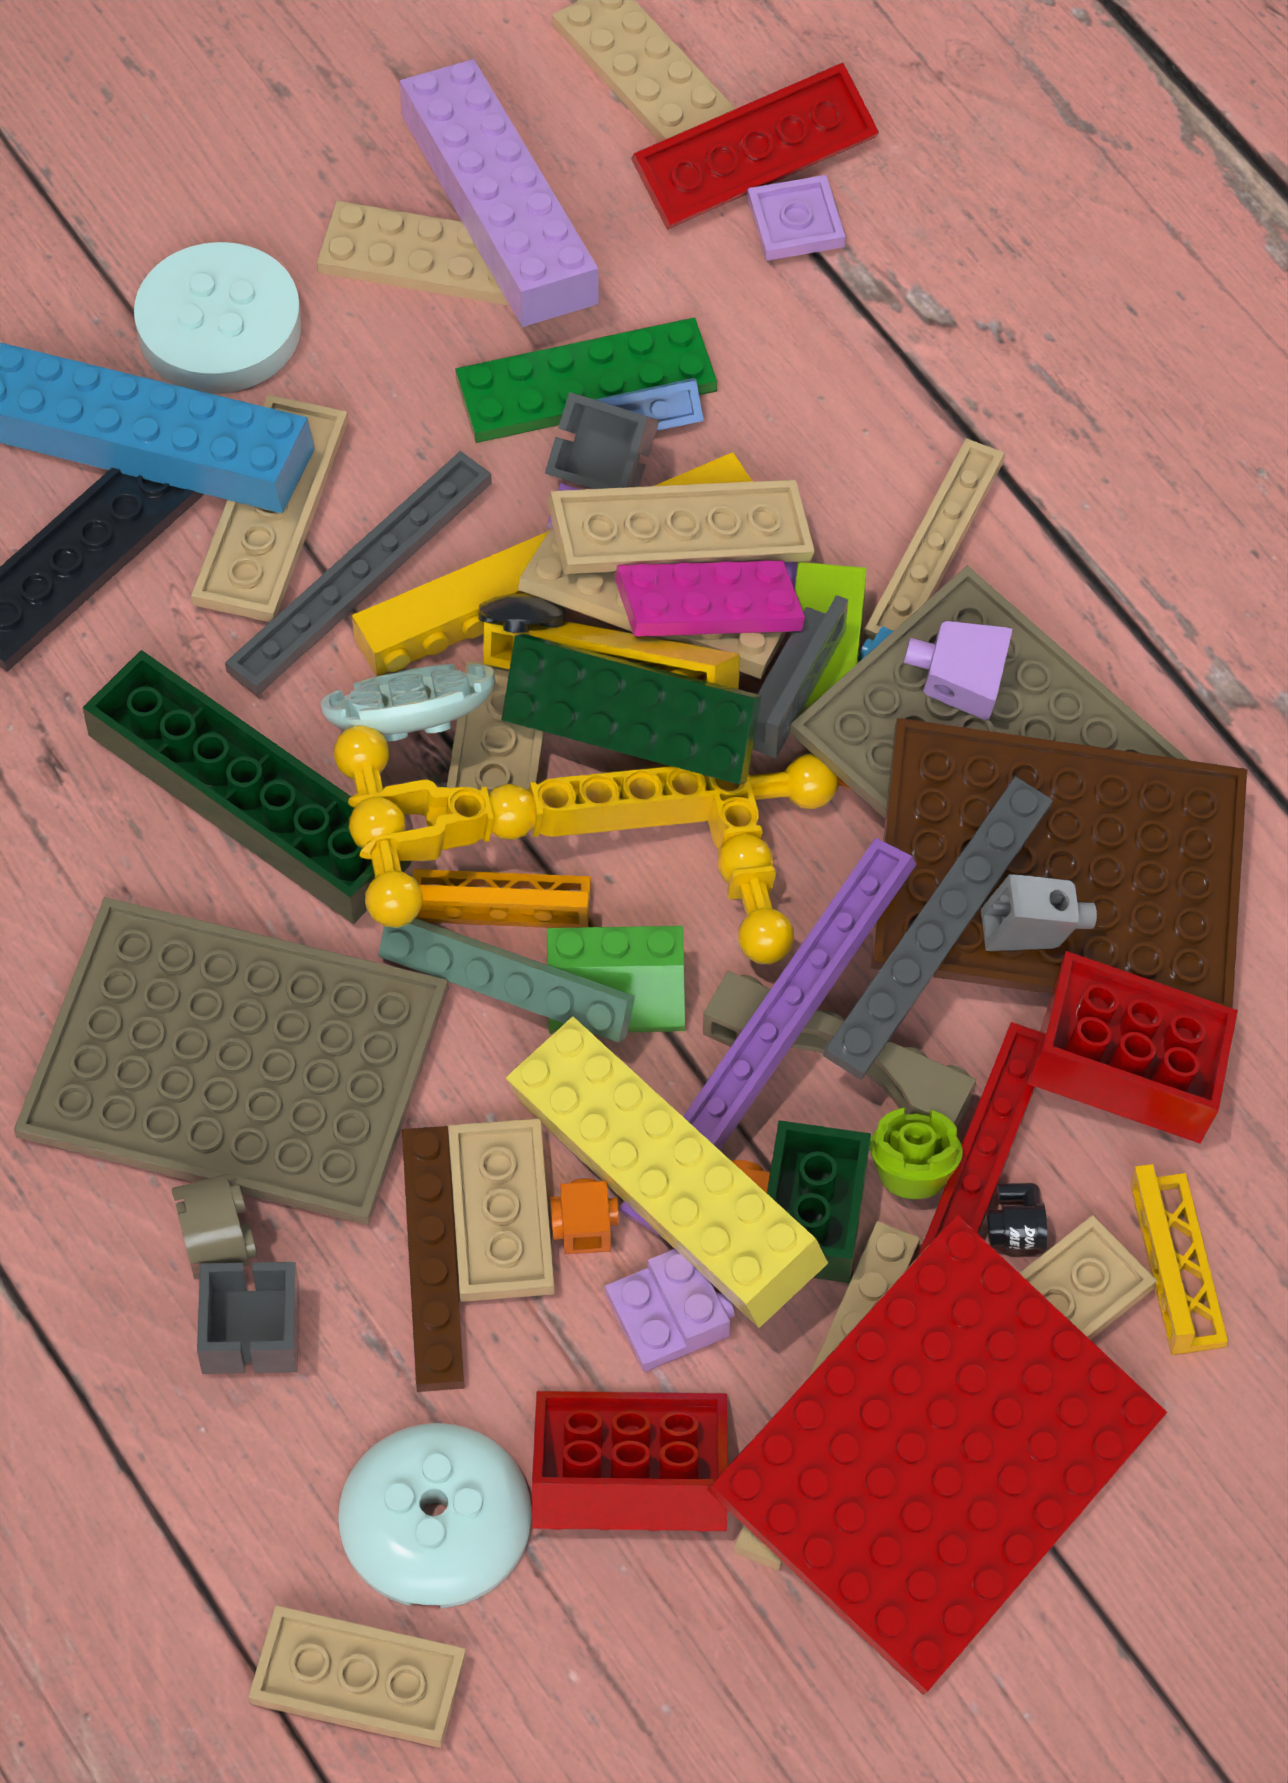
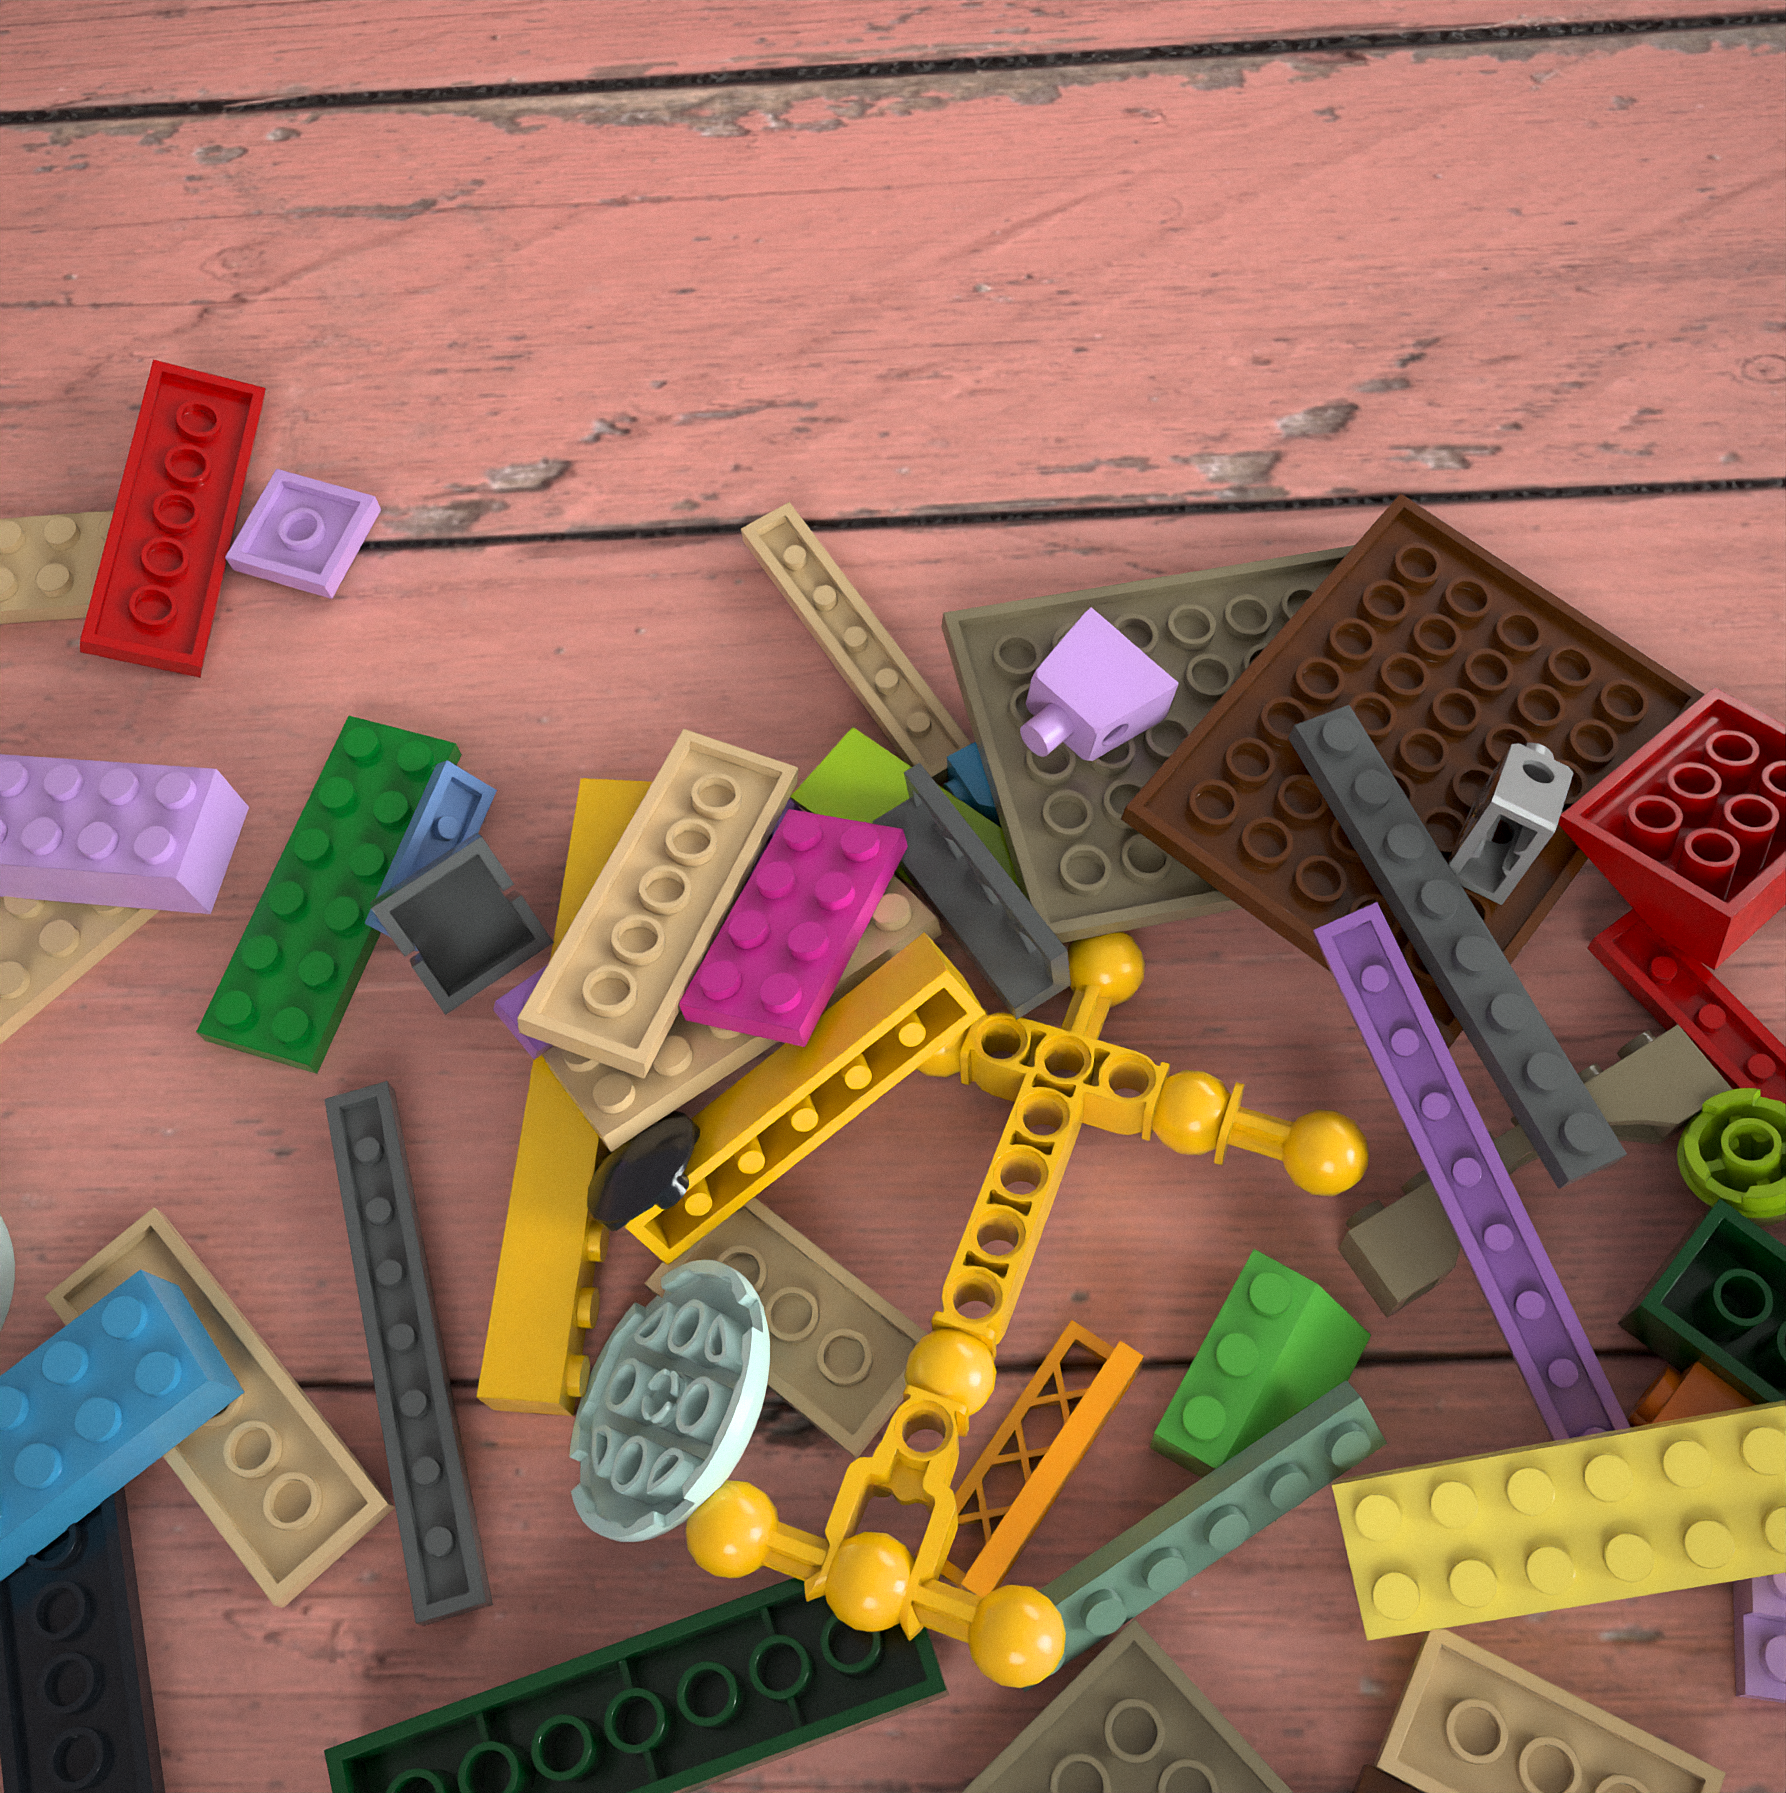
camera: 50 degrees left, 5 degrees up
(584, 1216) = (1622, 1657): orange brick -> none
(631, 708) = (900, 1117): dark green plate -> none

